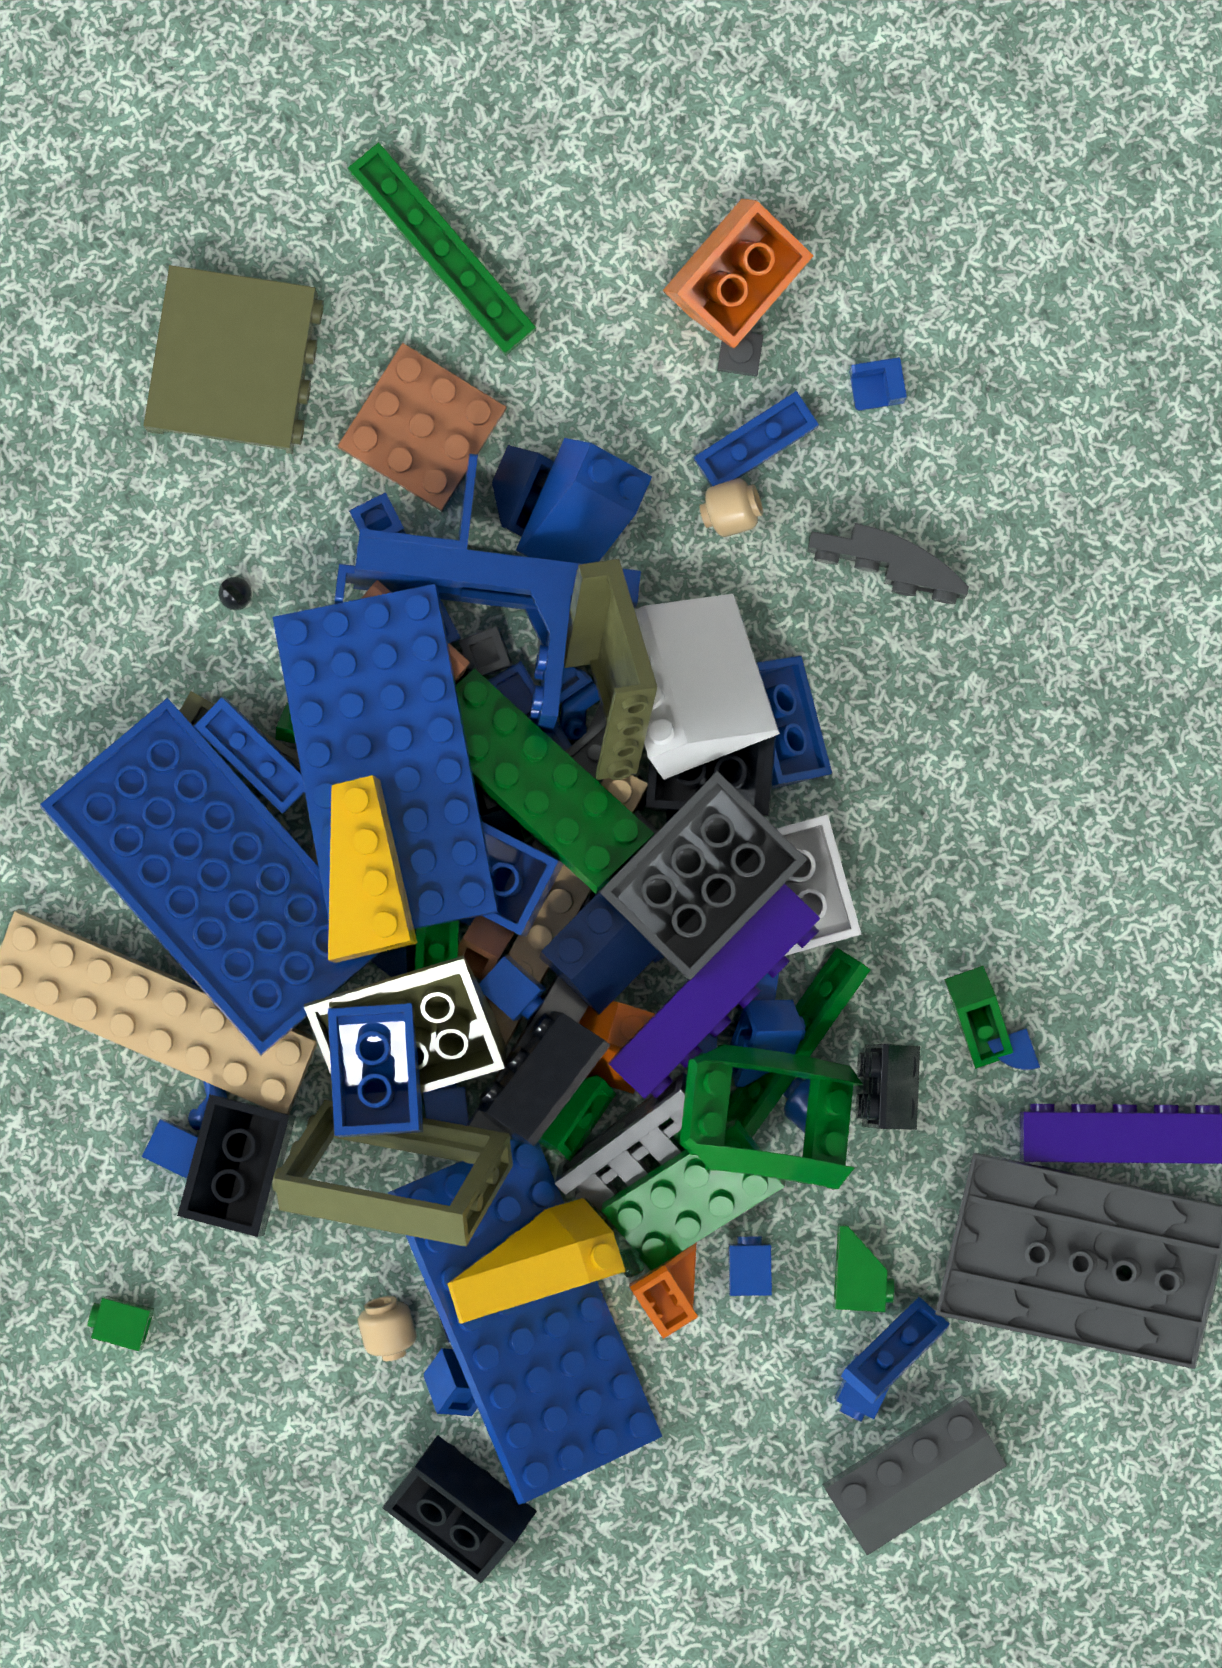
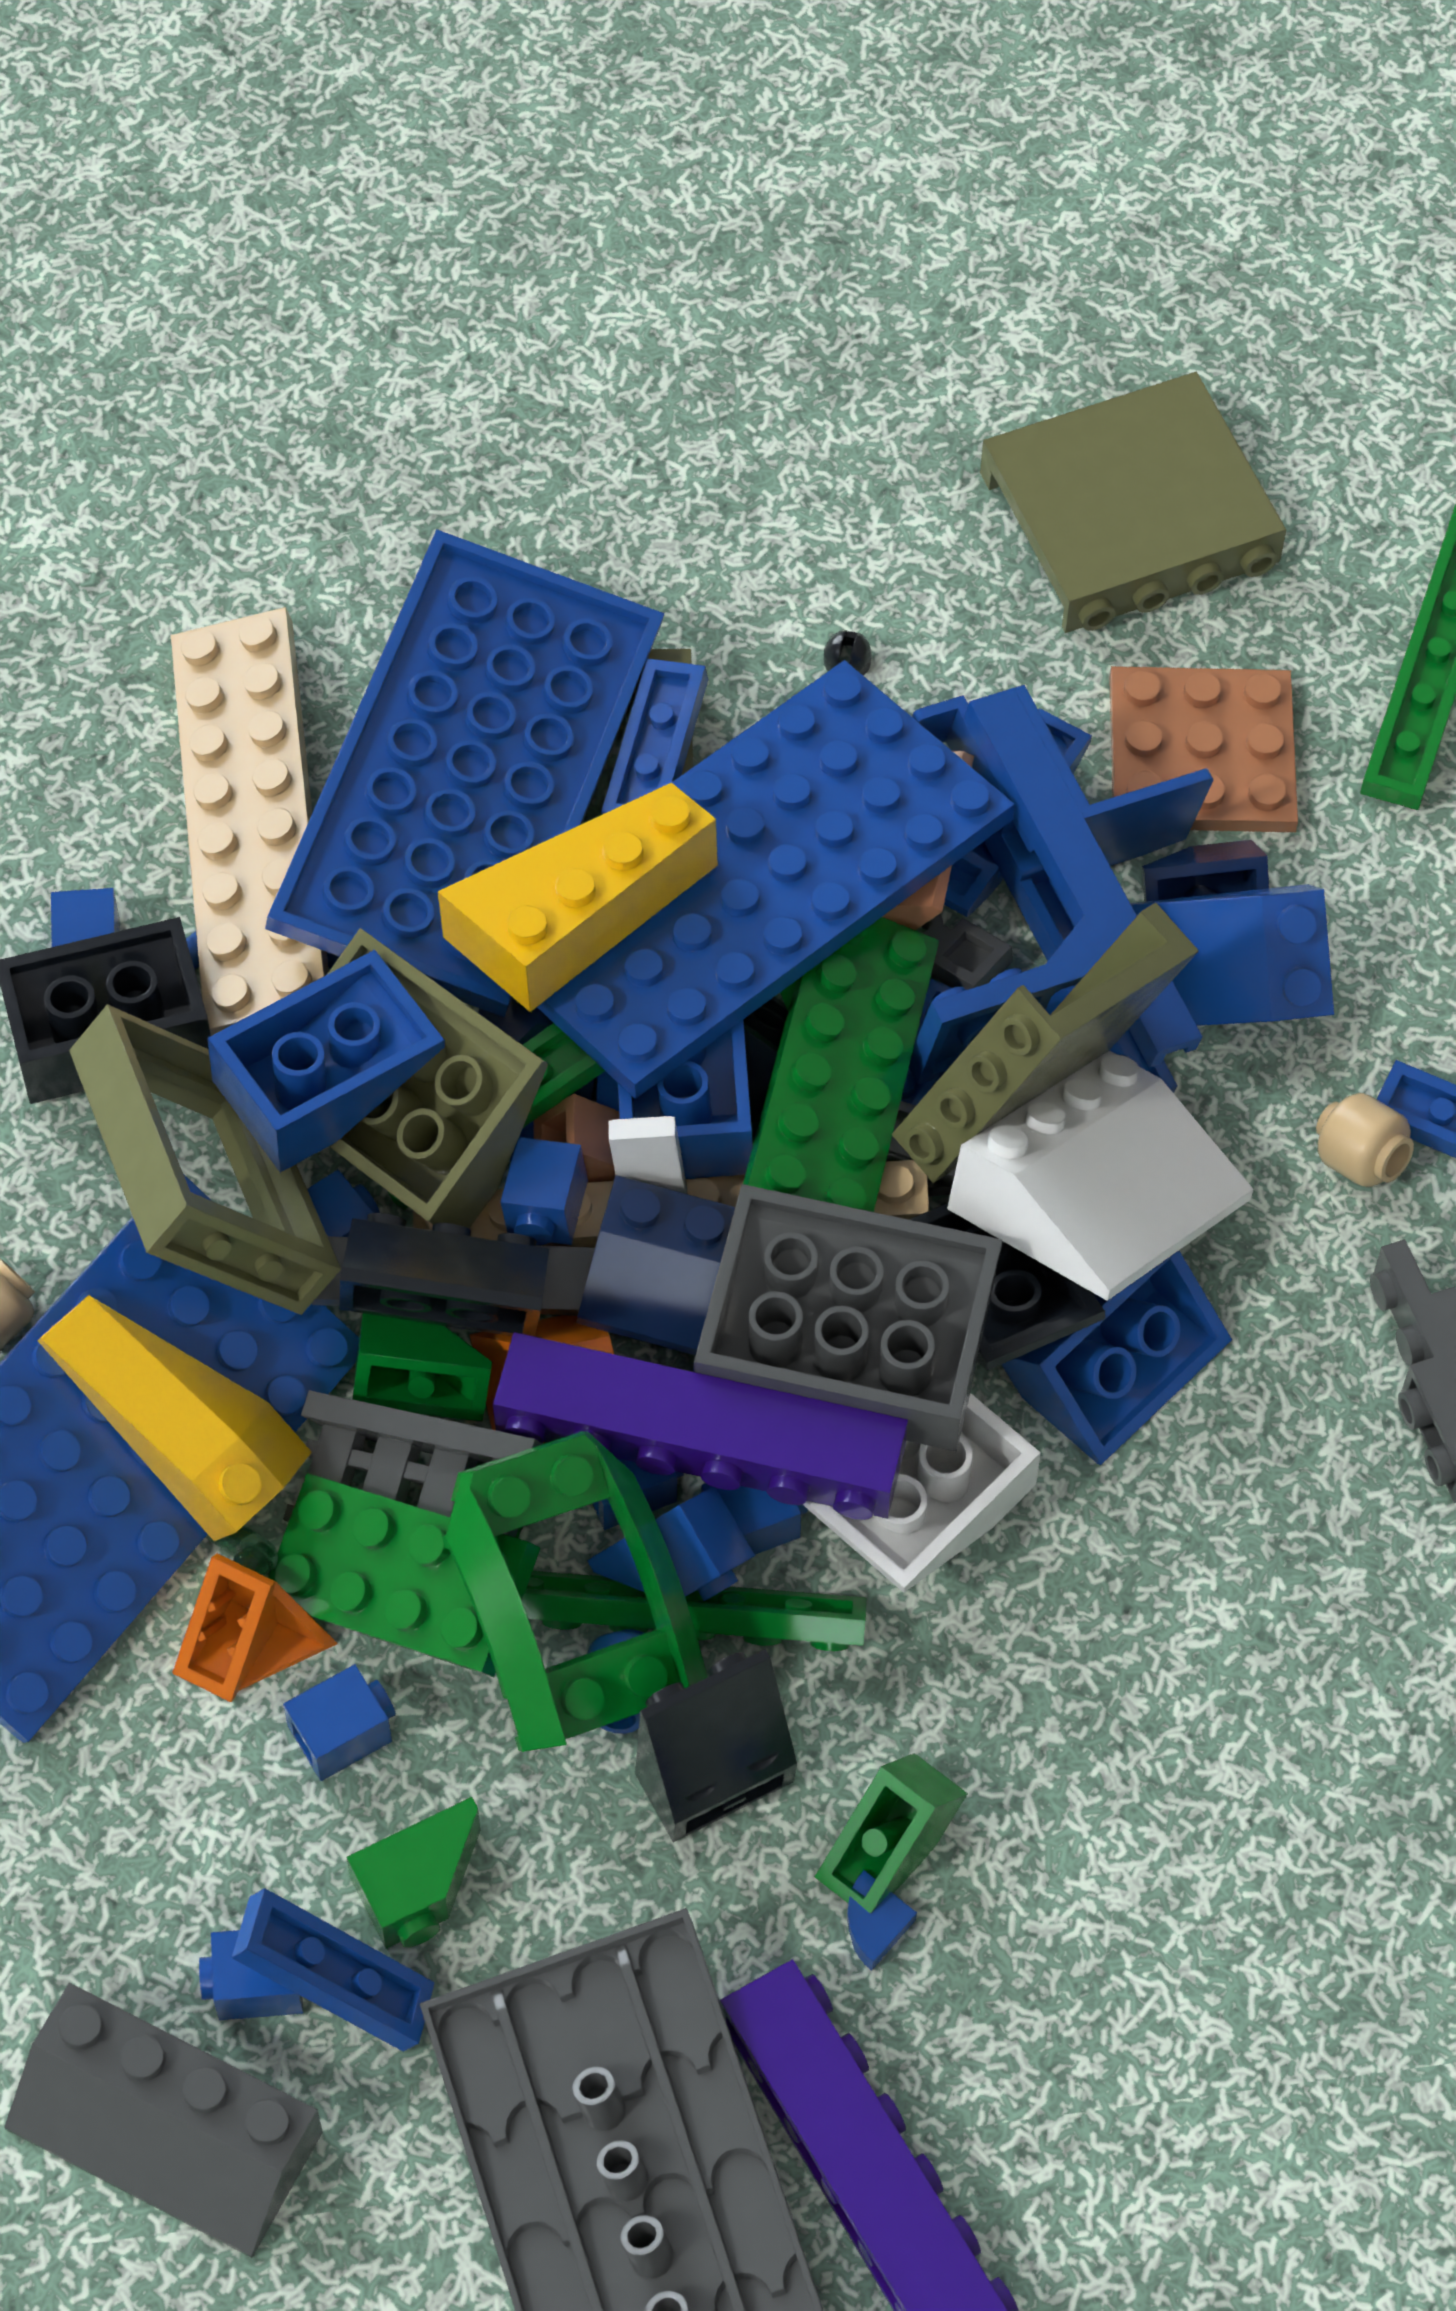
camera: 60 degrees right, 25 degrees down
(540, 927) = (648, 1151): none -> white tile

